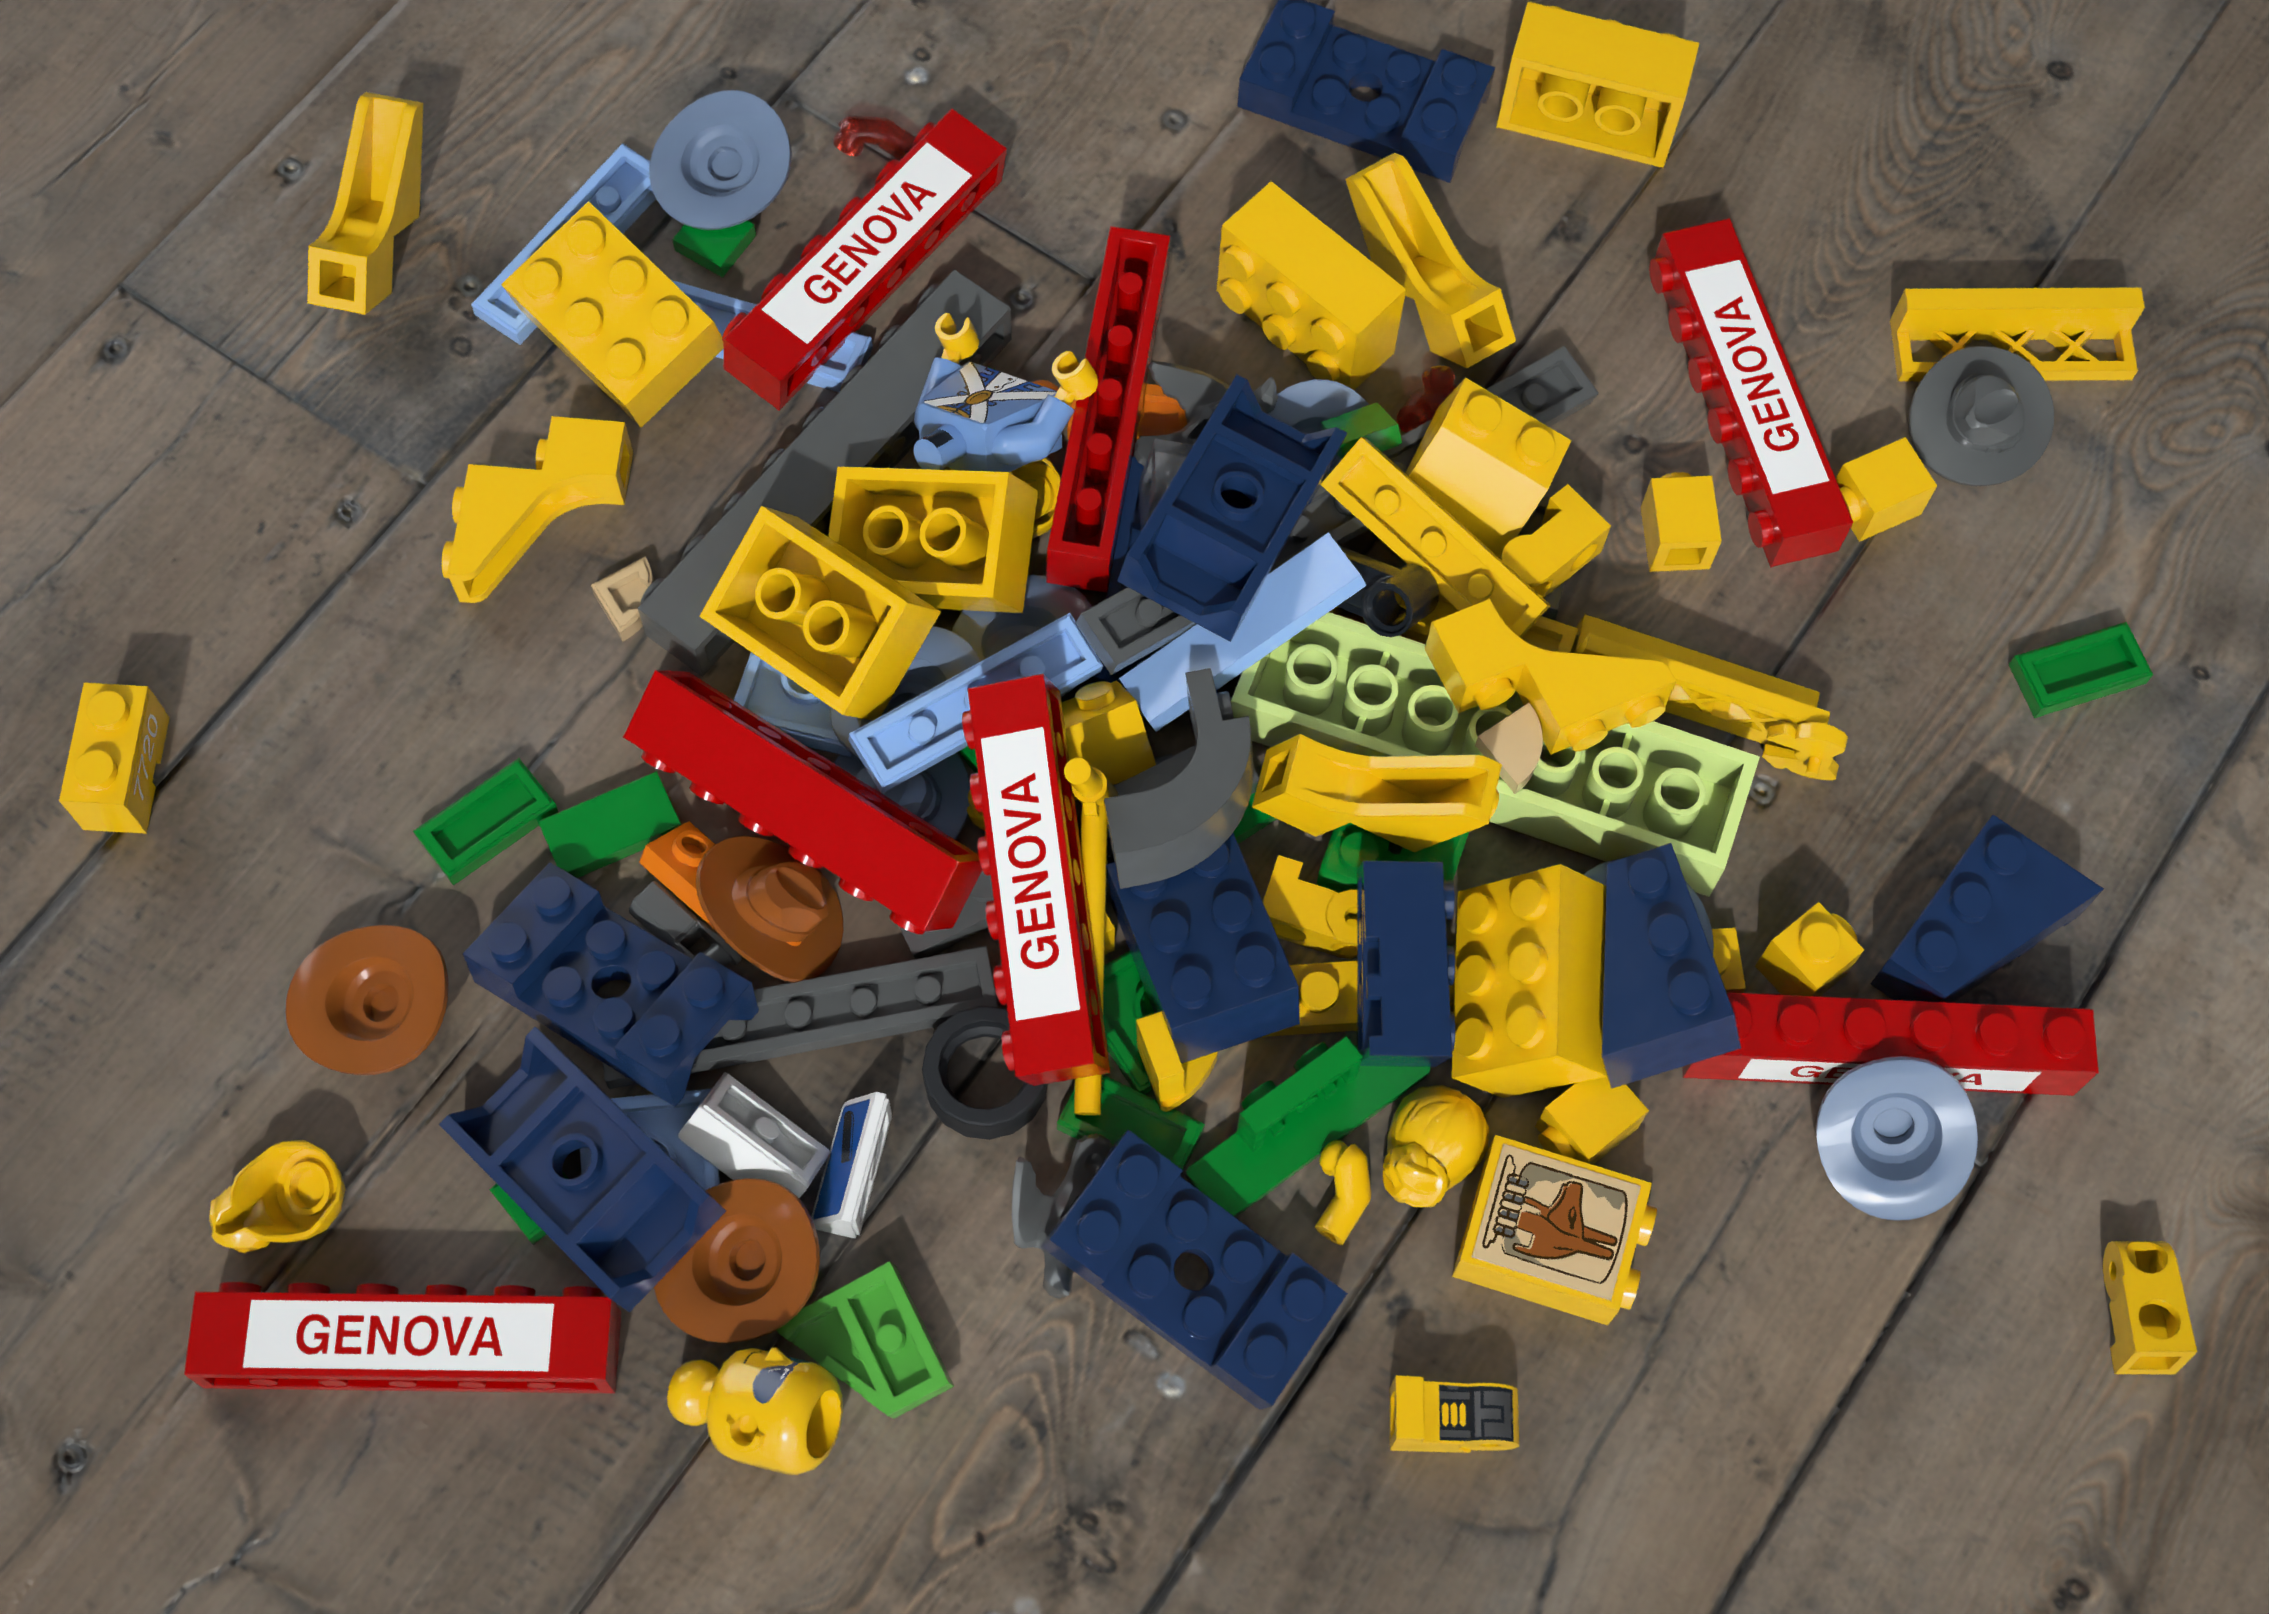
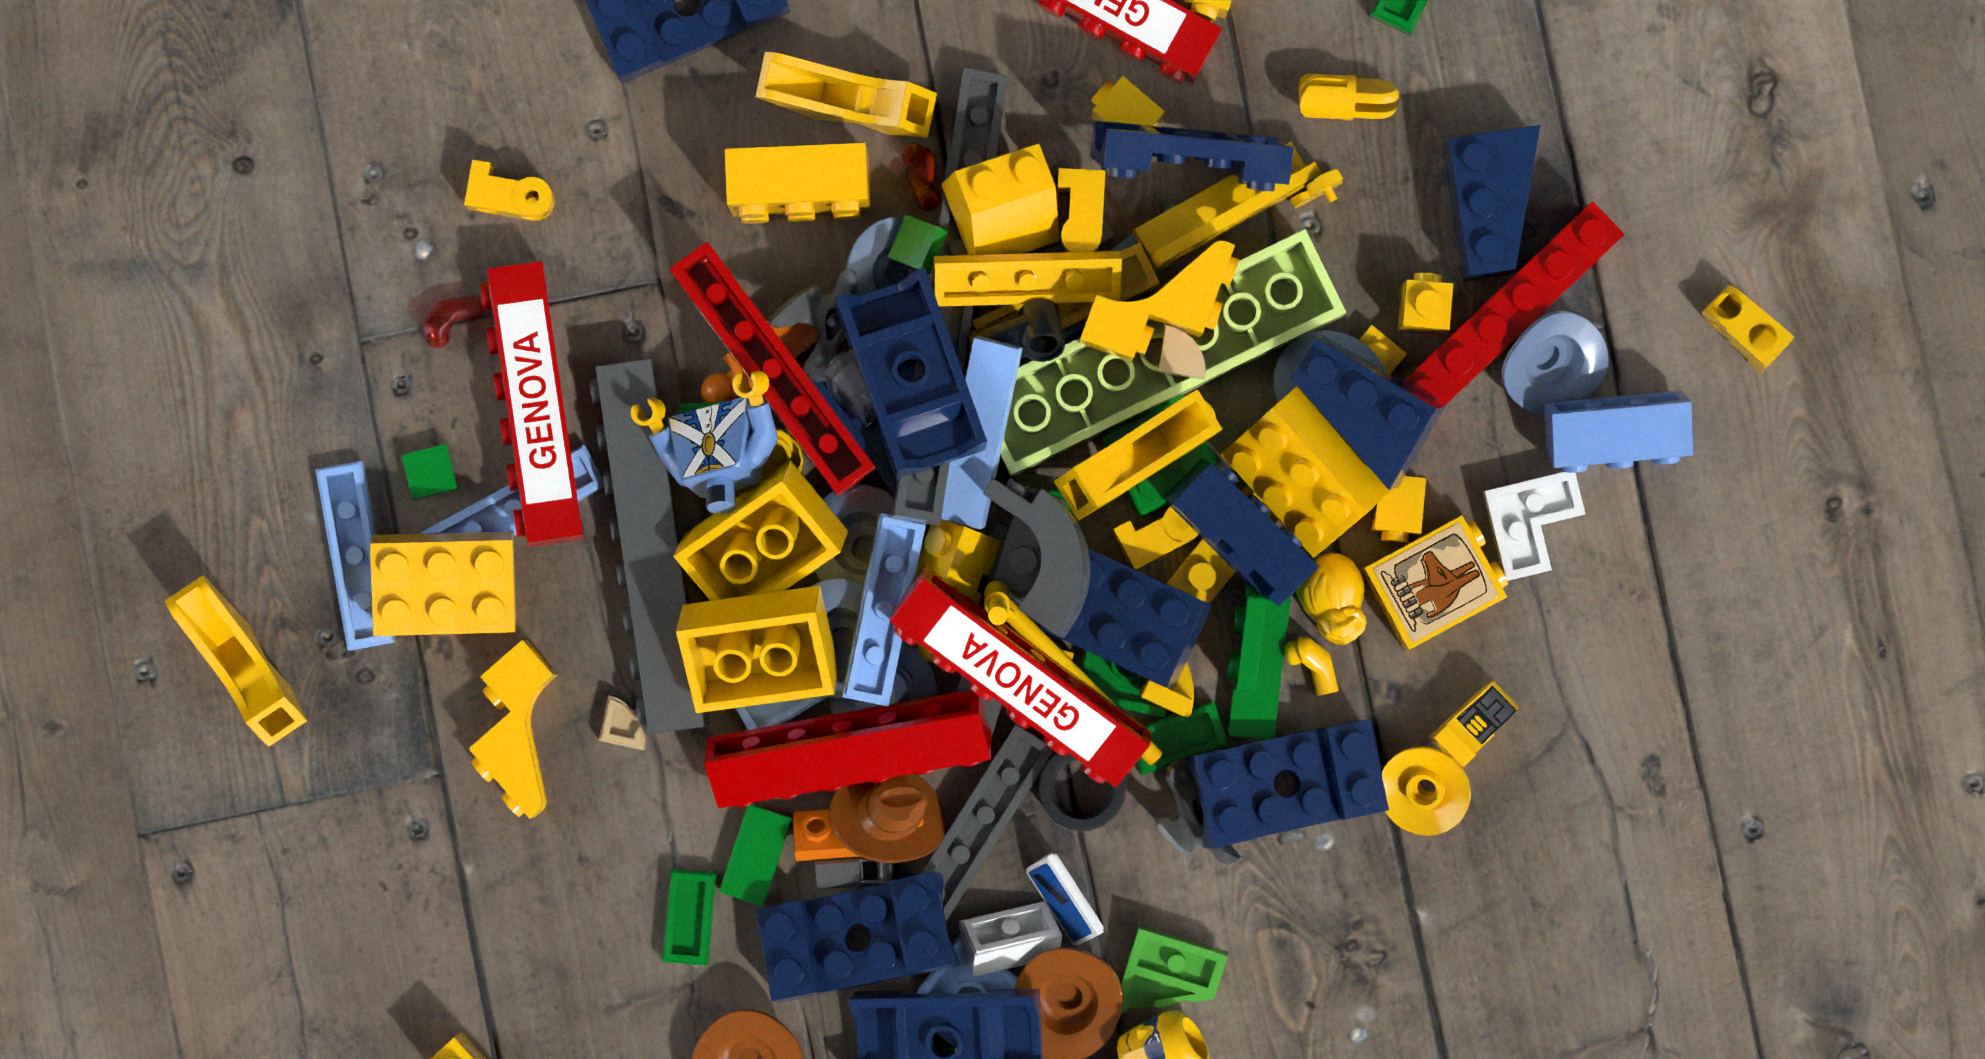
camera: 45 degrees left, 20 degrees up
(720, 161) = (389, 429): sand blue hat -> none
(1034, 88) = (522, 199): none -> yellow leg
(1301, 1425) = (1422, 810): none -> yellow dish
(1659, 508) = (1130, 148): none -> dark blue piece
(1715, 1253) = (1517, 519): none -> white plate
(1904, 1270) = (1618, 430): none -> medium blue brick
(1906, 691) = (1346, 97): none -> yellow arm

